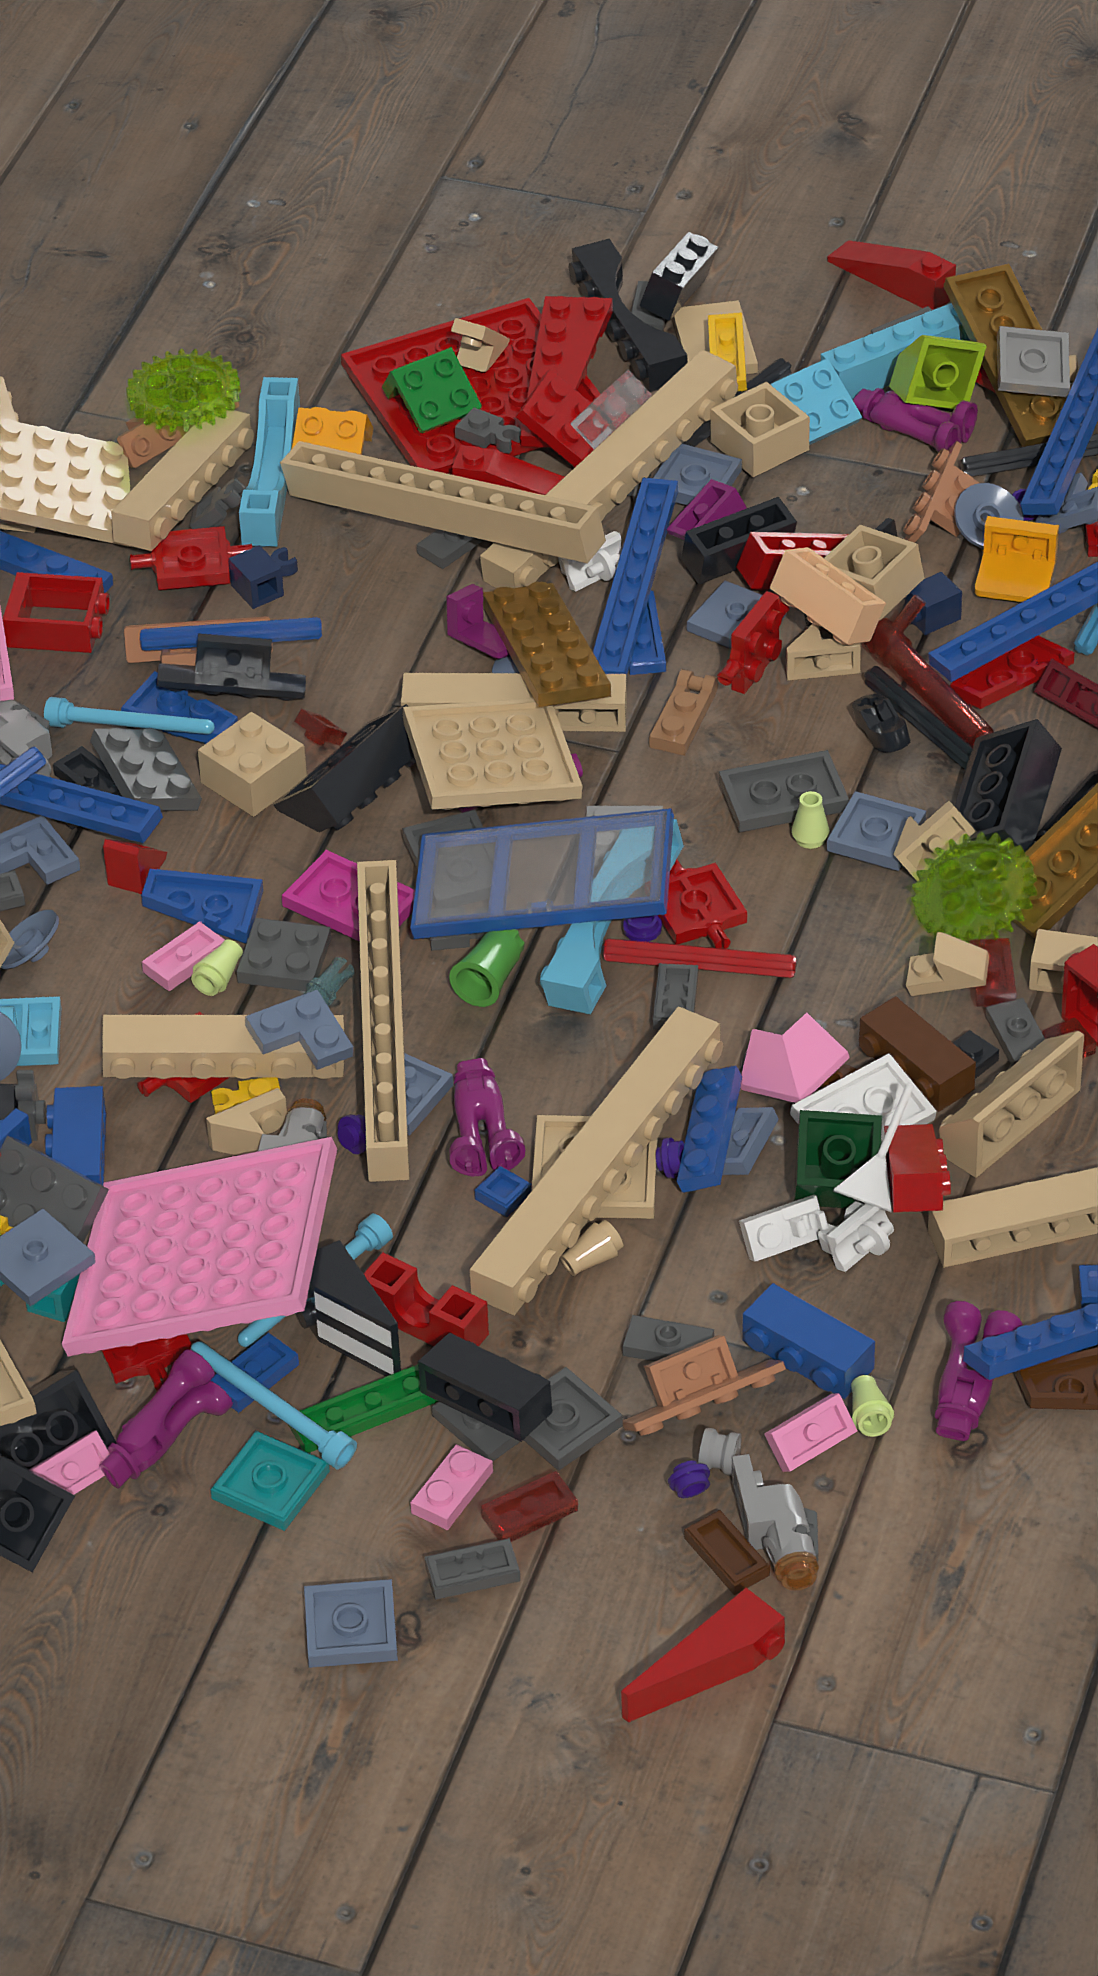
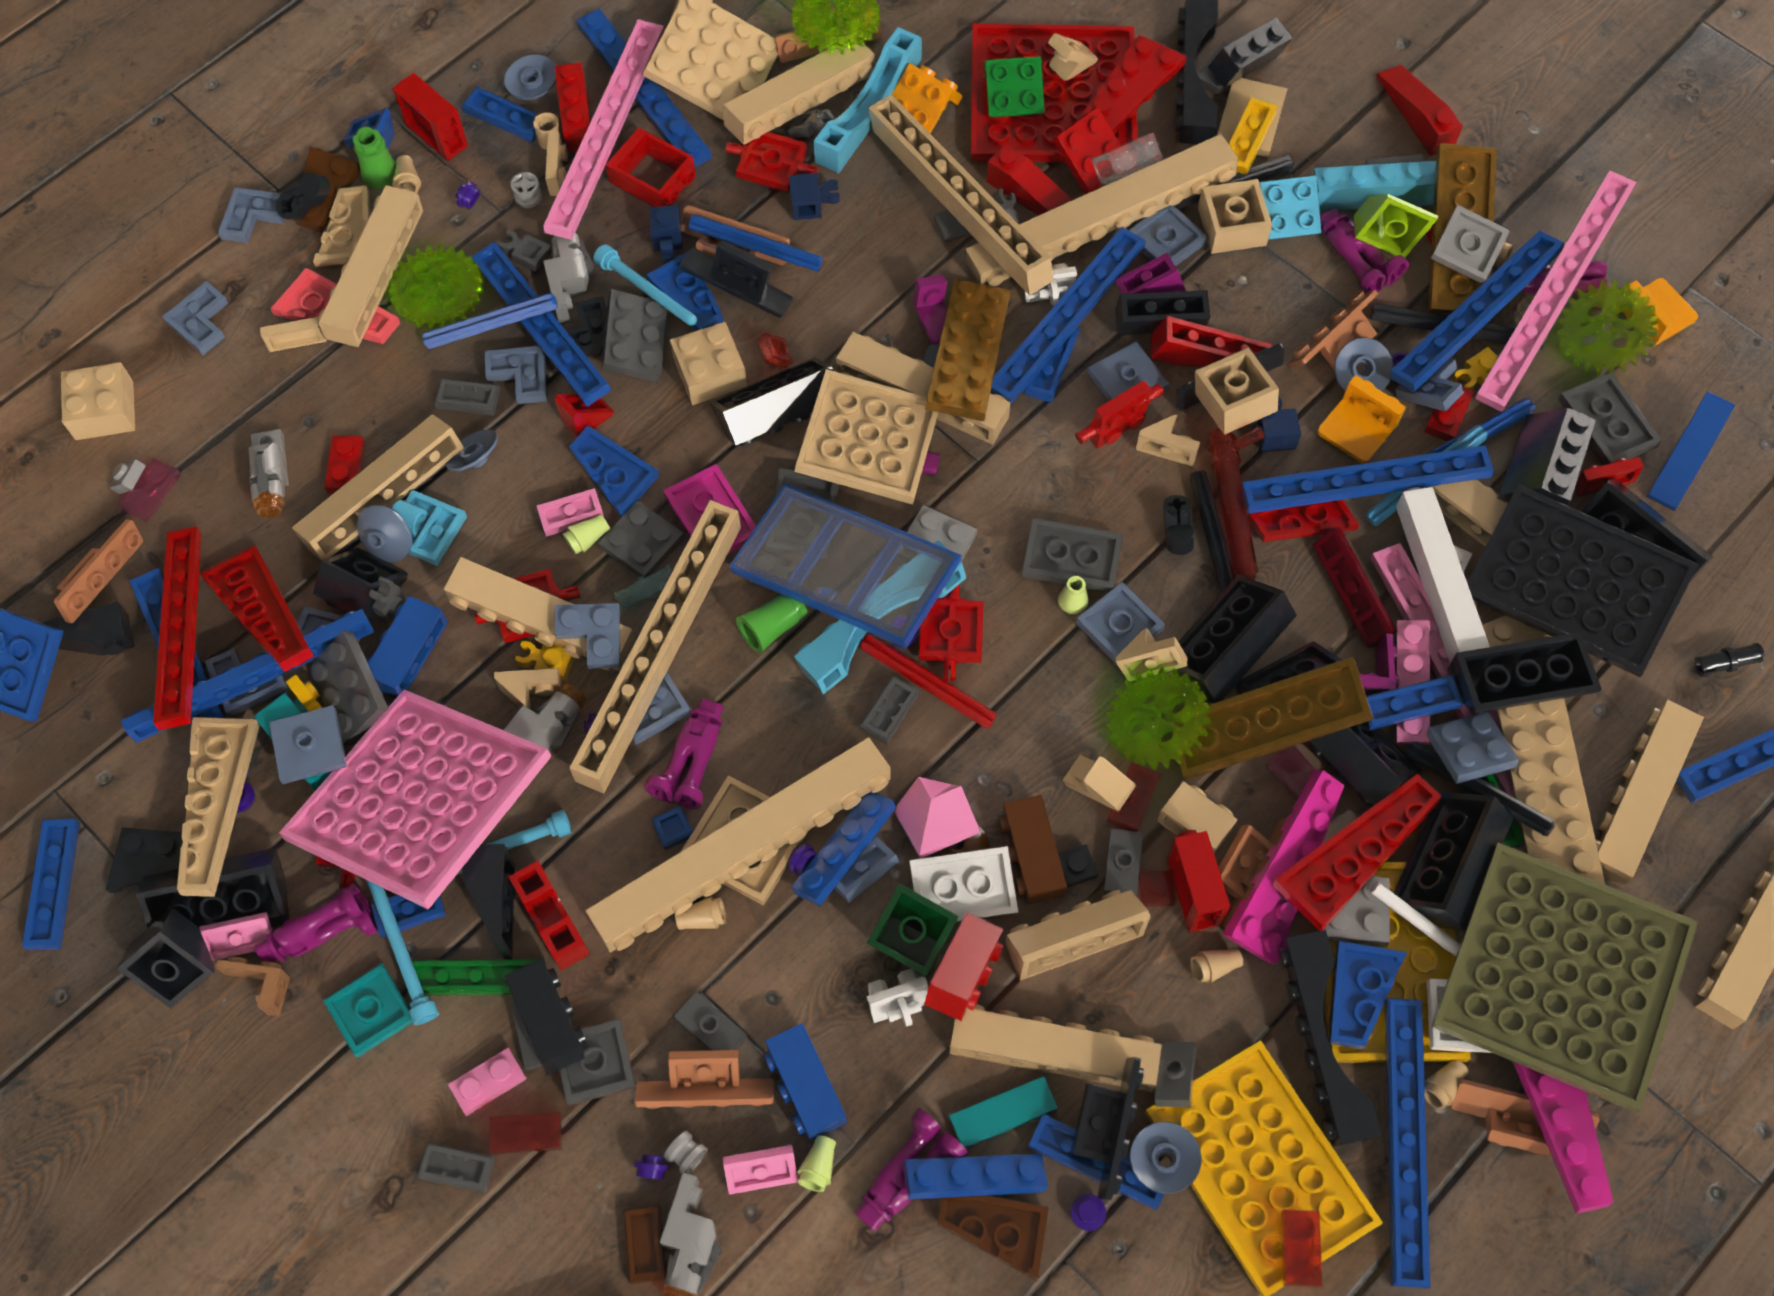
camera: 25 degrees right, 20 degrees up
(113, 660) = (666, 230): none -> dark blue brick
(119, 1491) = (271, 992): none -> medium nougat bracket
(350, 1623) = (346, 1173): sand blue plate -> none
(485, 428) = (1034, 133): dark grey plate -> none
(683, 713) = (1040, 449): medium nougat plate -> none
(783, 1228) = (846, 966): white plate -> none
(827, 596) = (1189, 402): light nougat brick -> none
(870, 1181) = (921, 967): white piece -> none
(1039, 1283) = (1003, 1112): none -> teal tile

